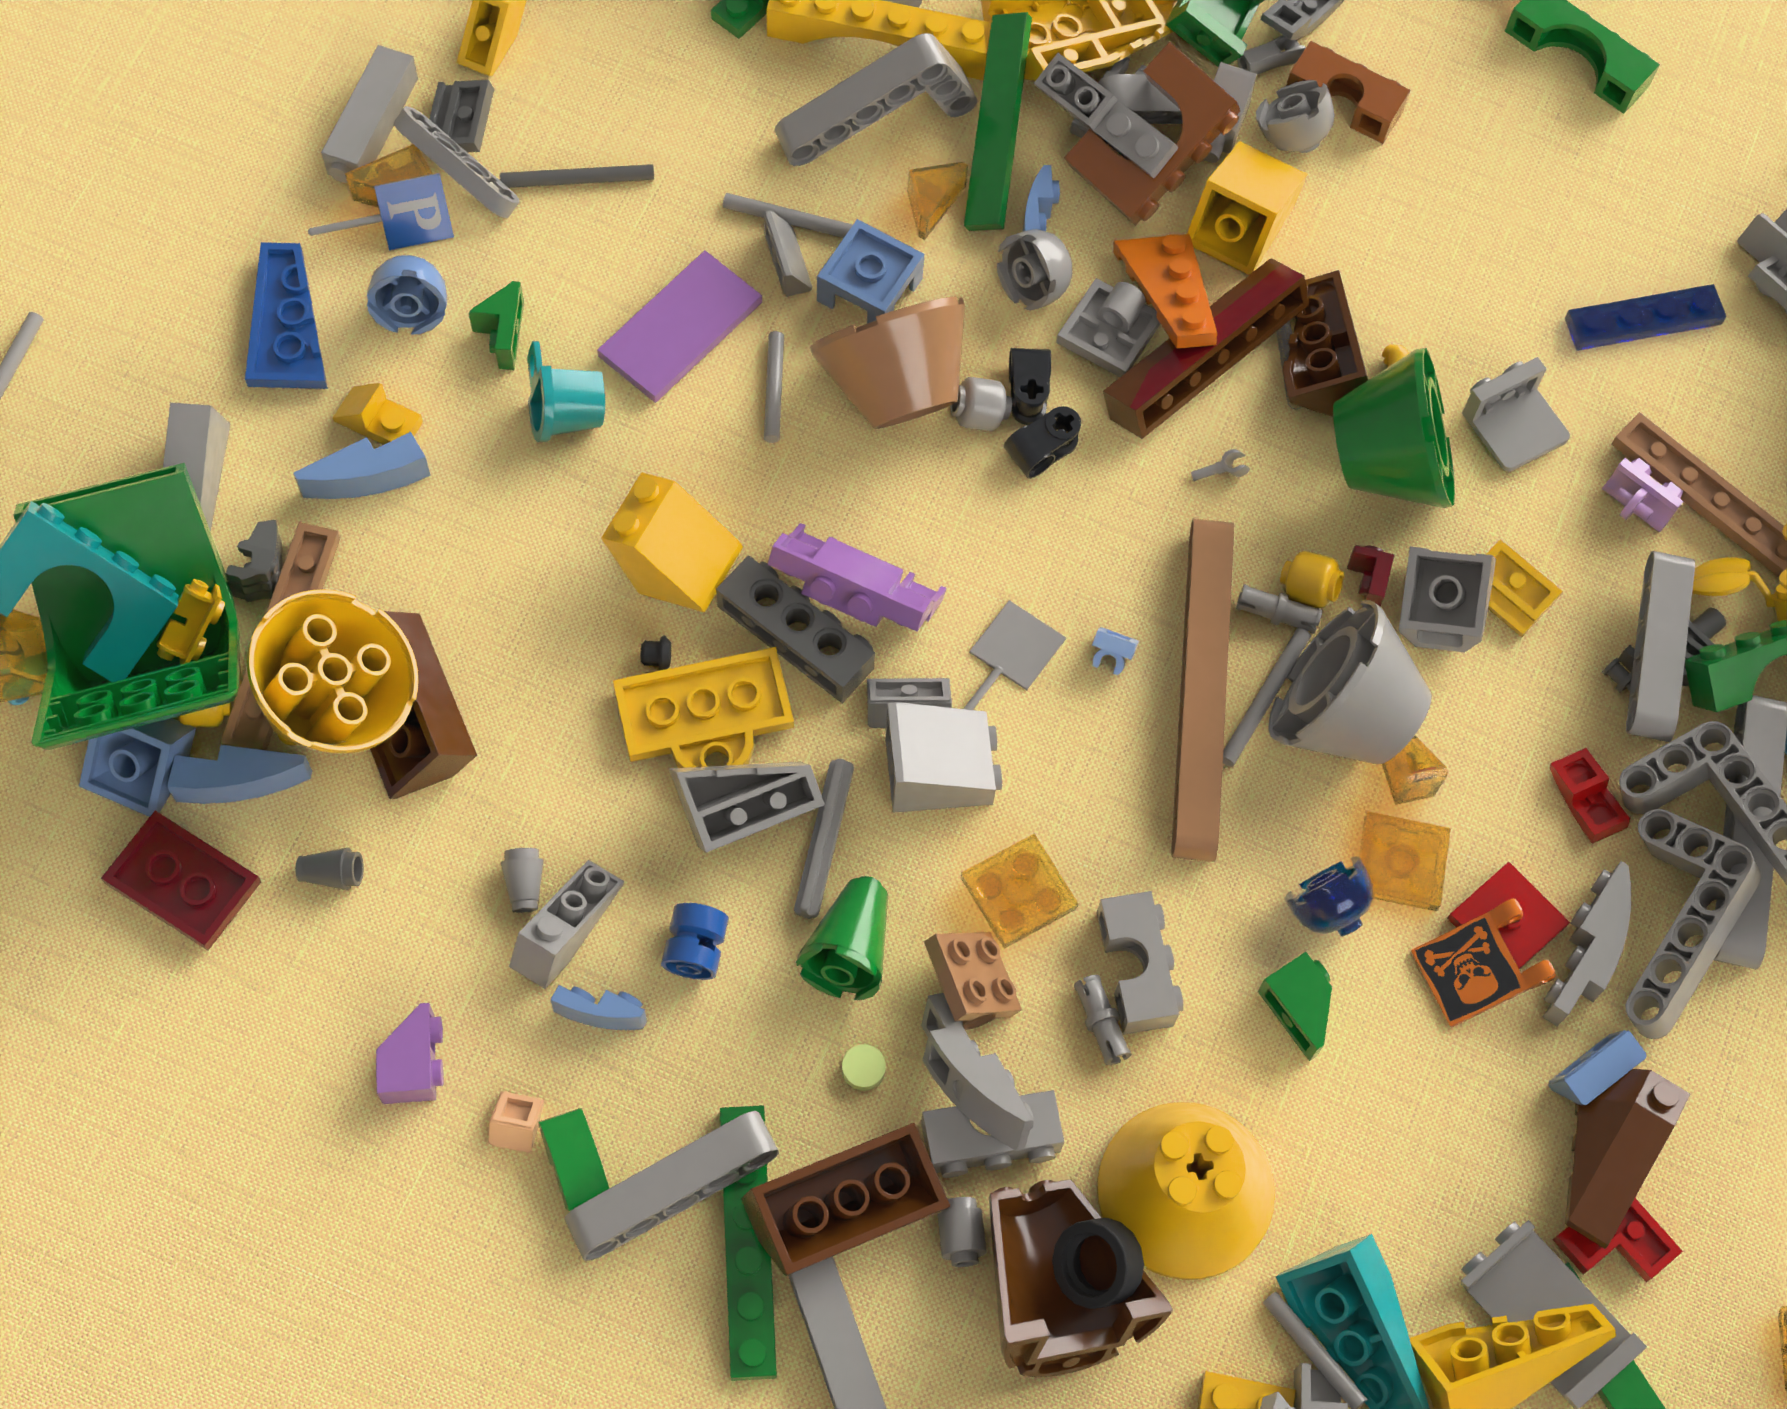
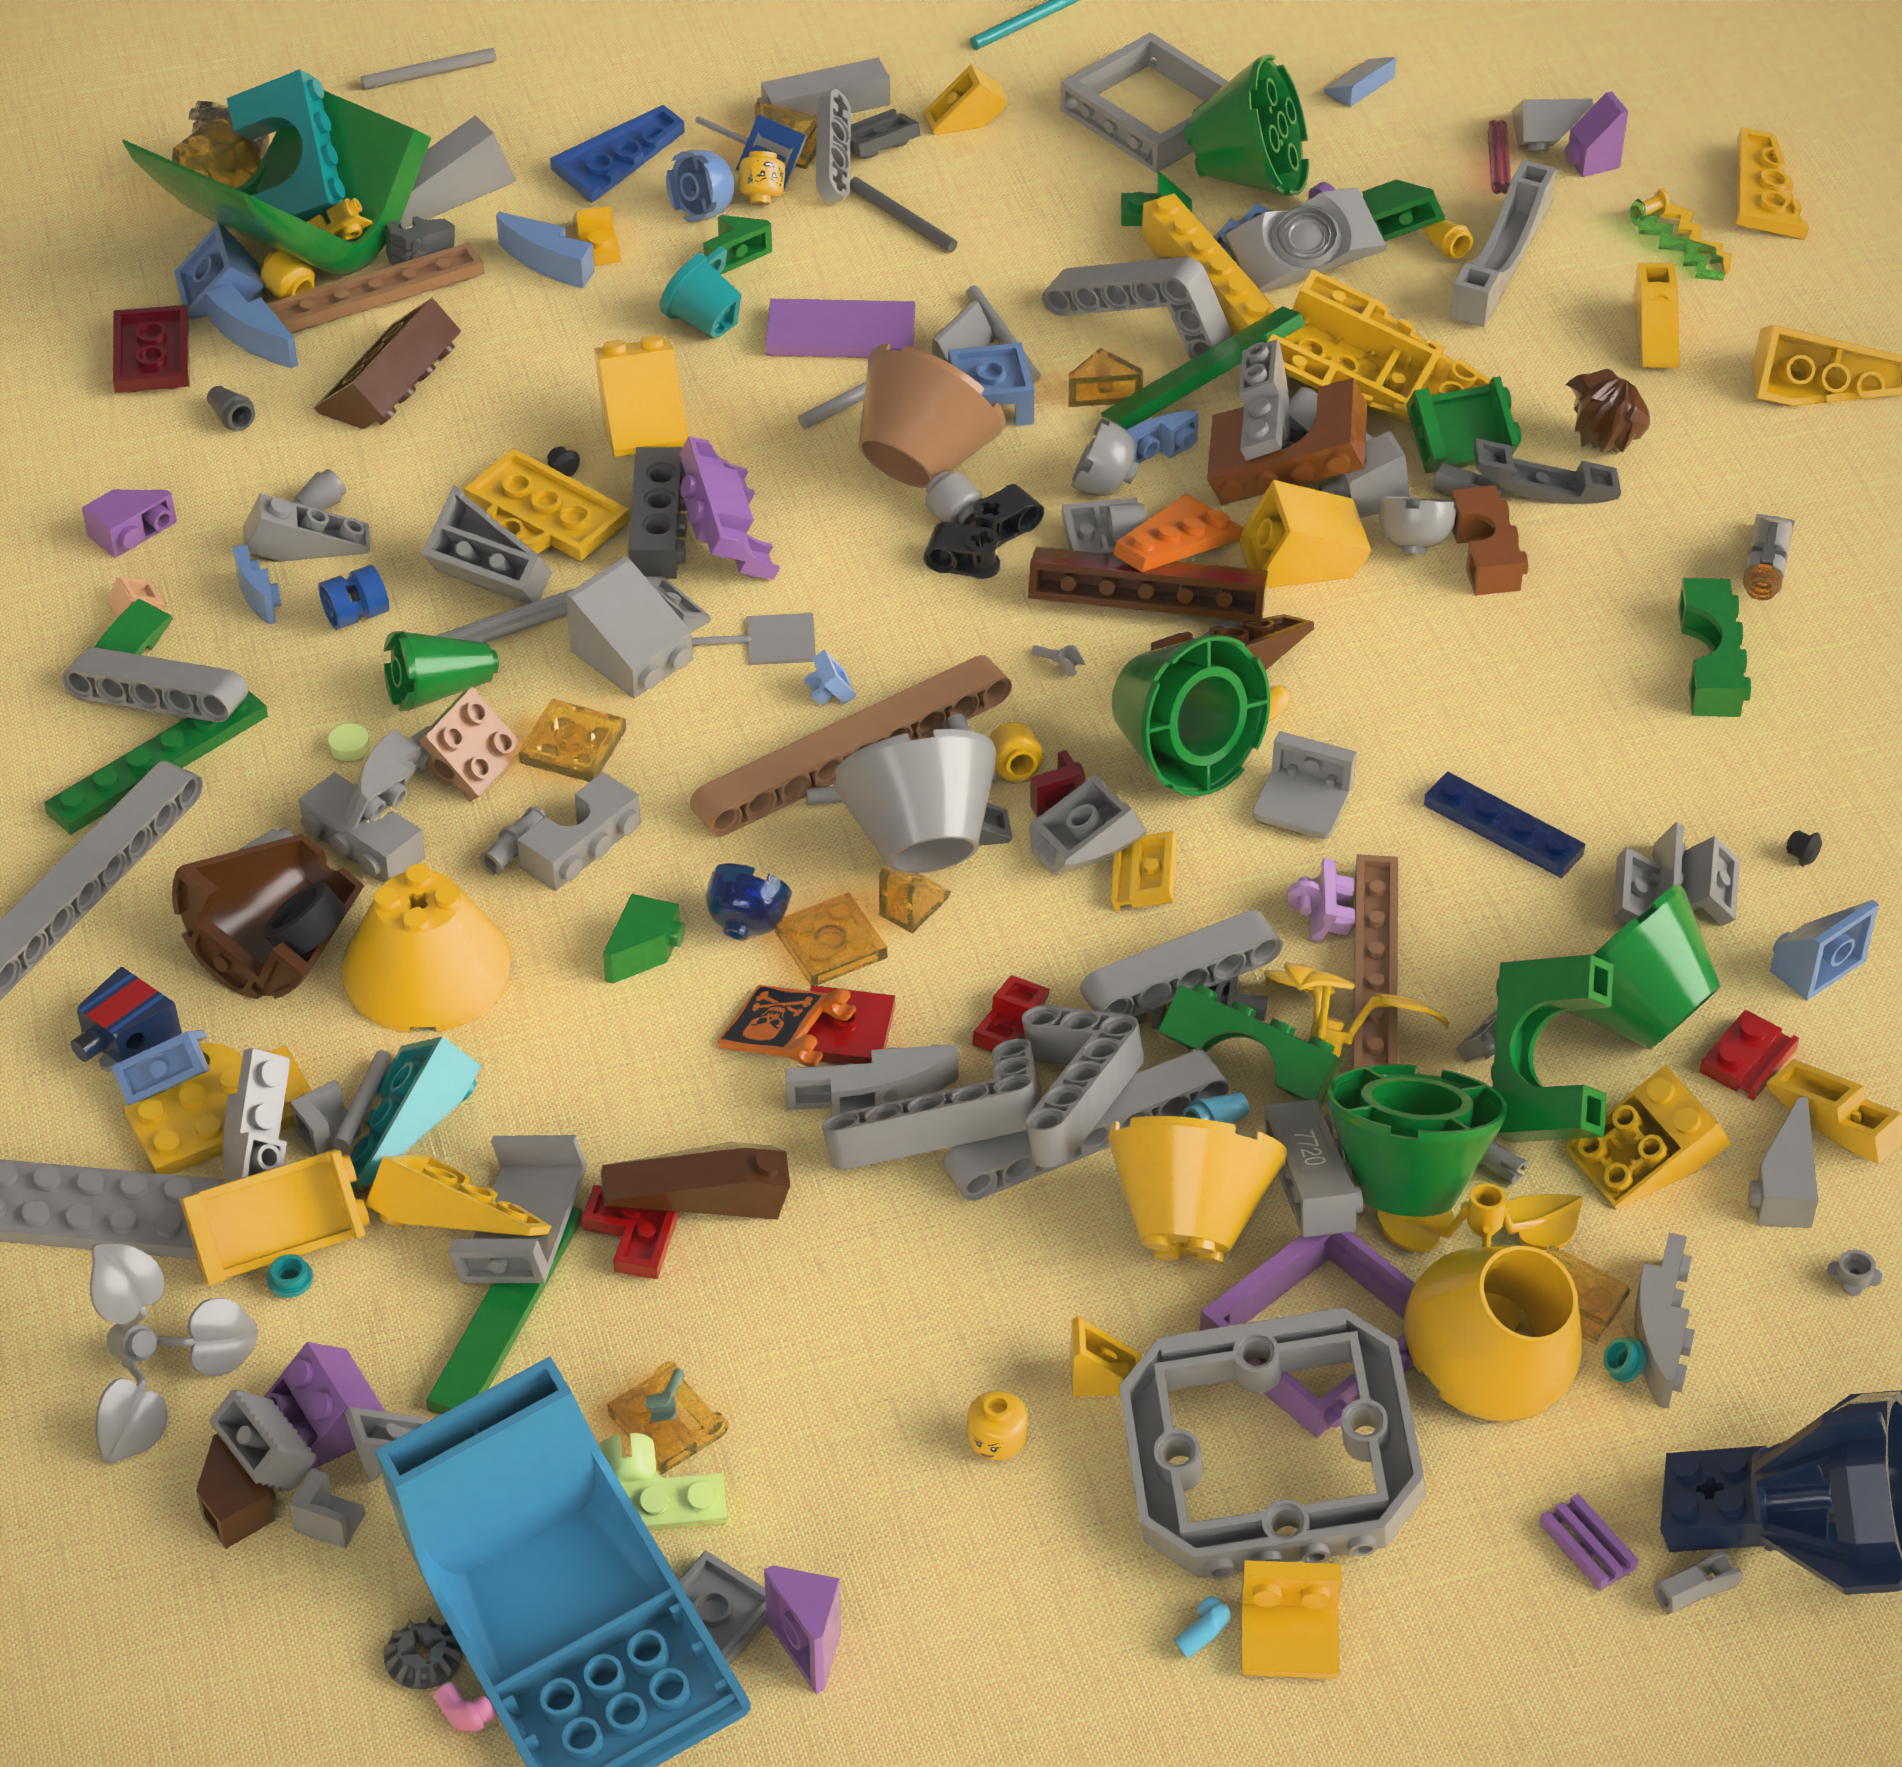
camera: 55 degrees right, 20 degrees down
(331, 672) = (347, 284): yellow cone -> none
(441, 241) = (761, 177): none -> yellow head
(845, 1200) = (227, 761): reddish brown slope -> none
(1598, 1068) = (766, 1130): medium blue slope -> none

